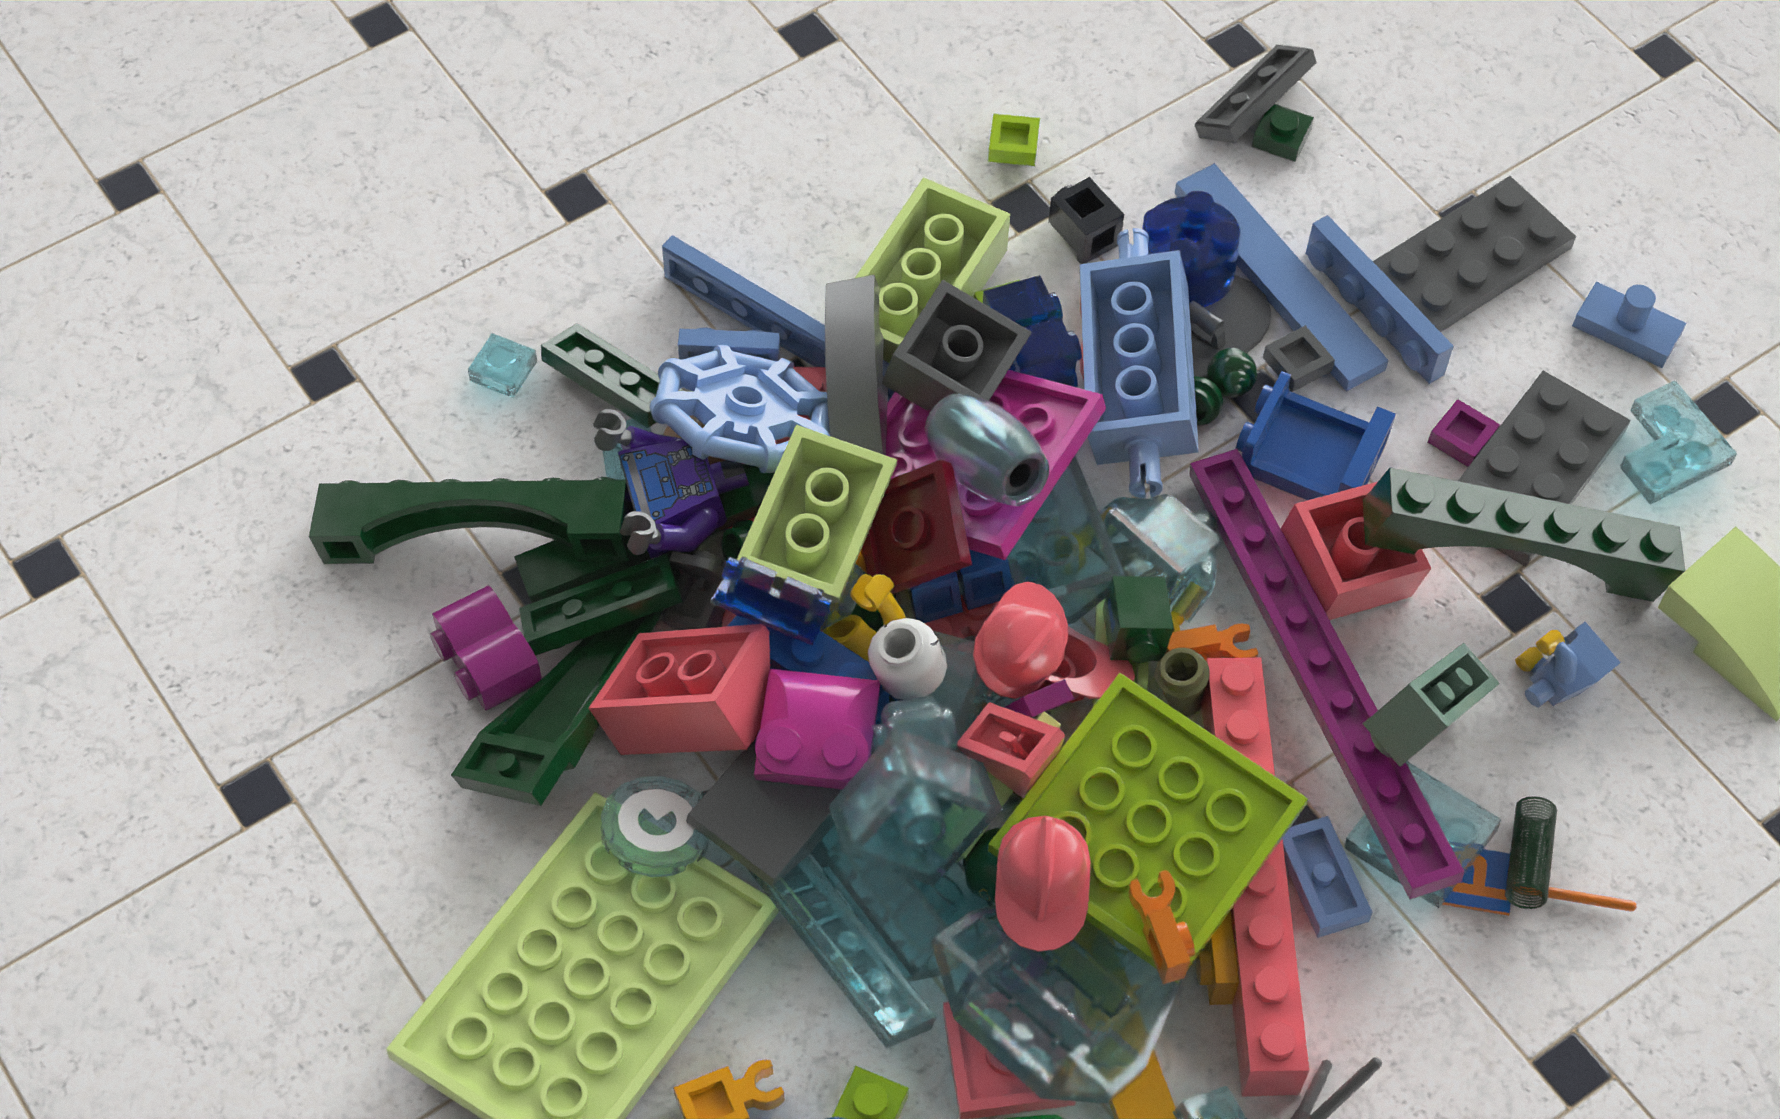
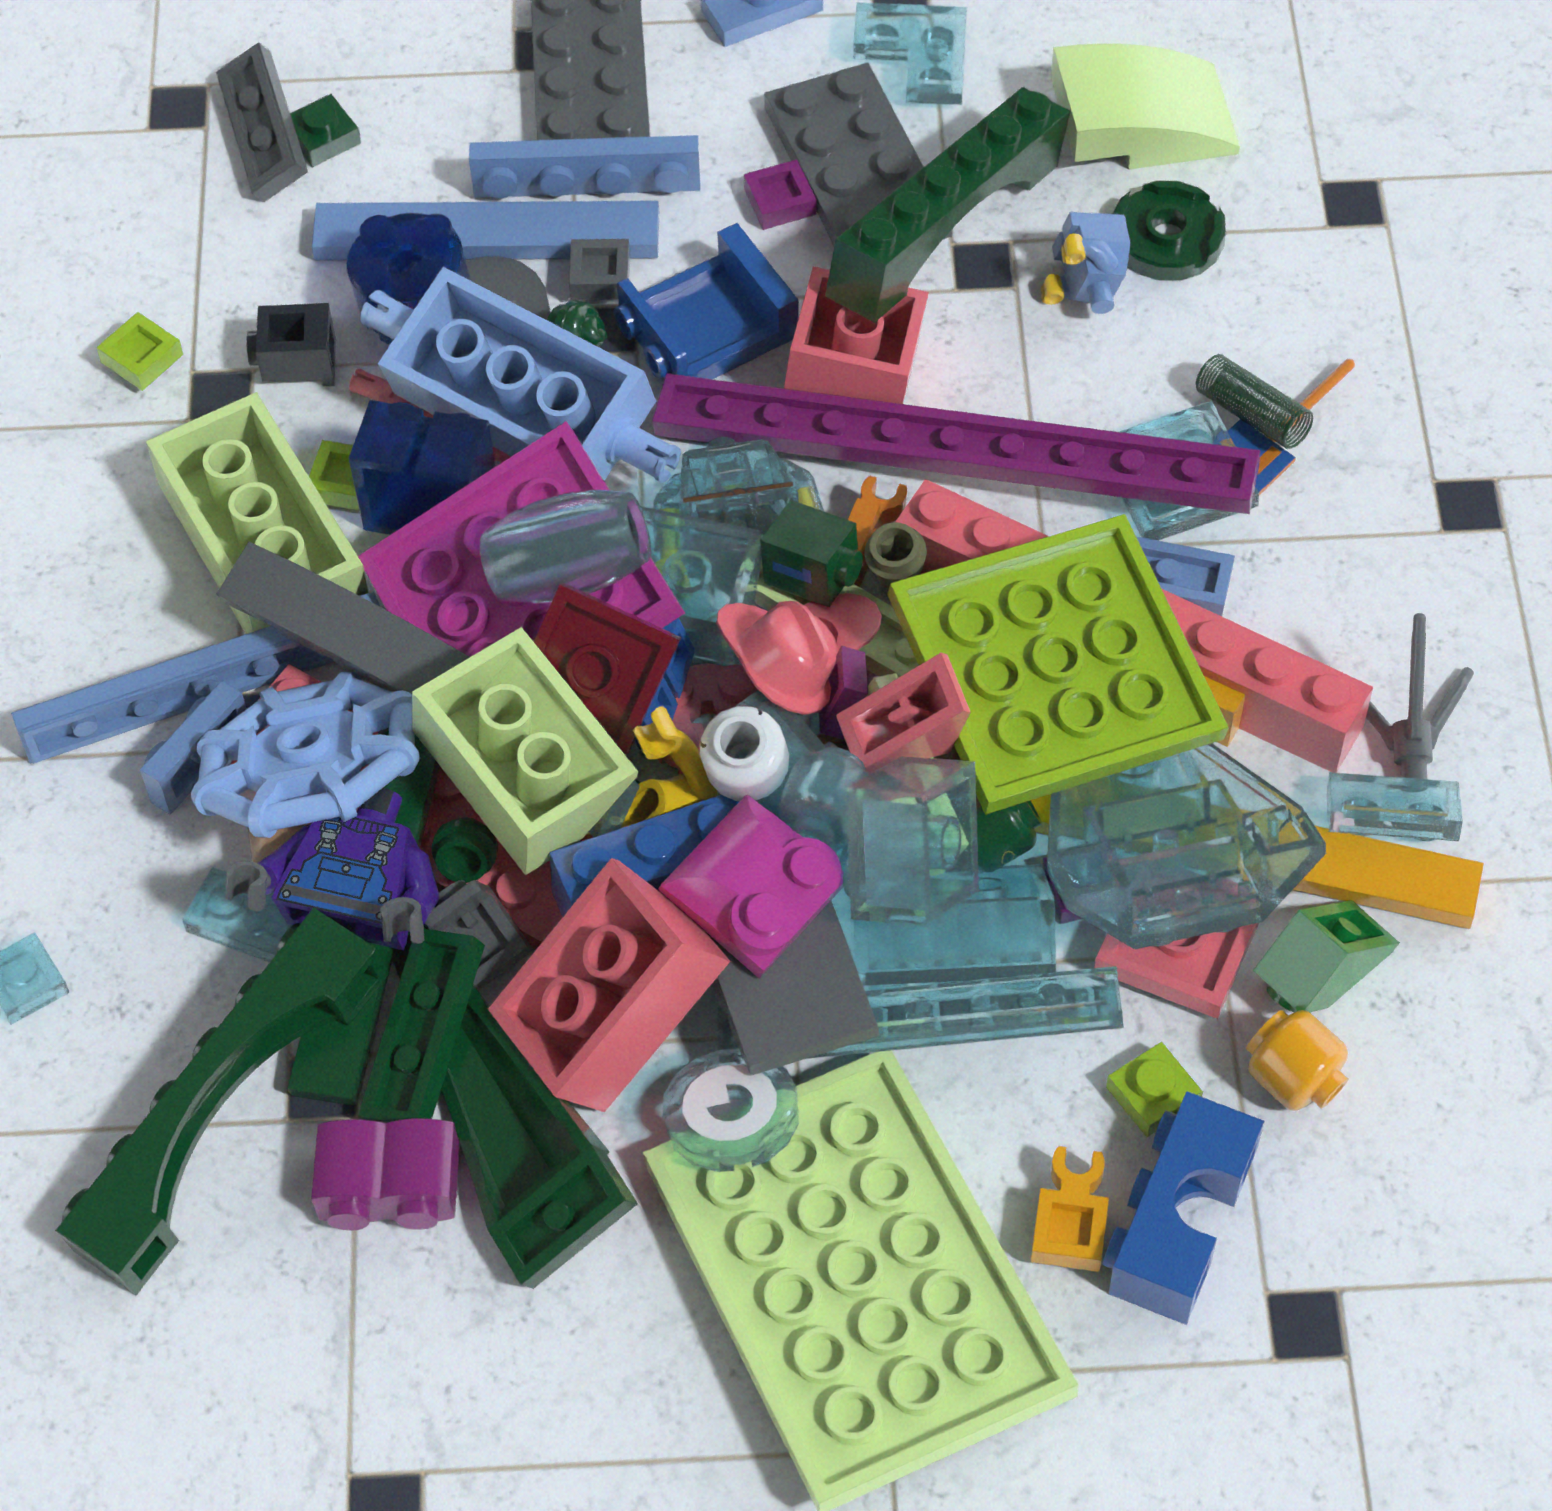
camera: 55 degrees left, 0 degrees up
(604, 371) = (134, 871): plate -> none
(749, 593) = (570, 846): clear blue hinge -> none
(954, 350) = (409, 521): dark grey slope -> none
(1042, 883) = (1061, 778): coral piece -> none
(1167, 940) = (1191, 707): orange plate -> none
(1430, 704) = (1078, 374): sand green brick -> none
(1649, 735) = (1176, 255): none -> dark green tile

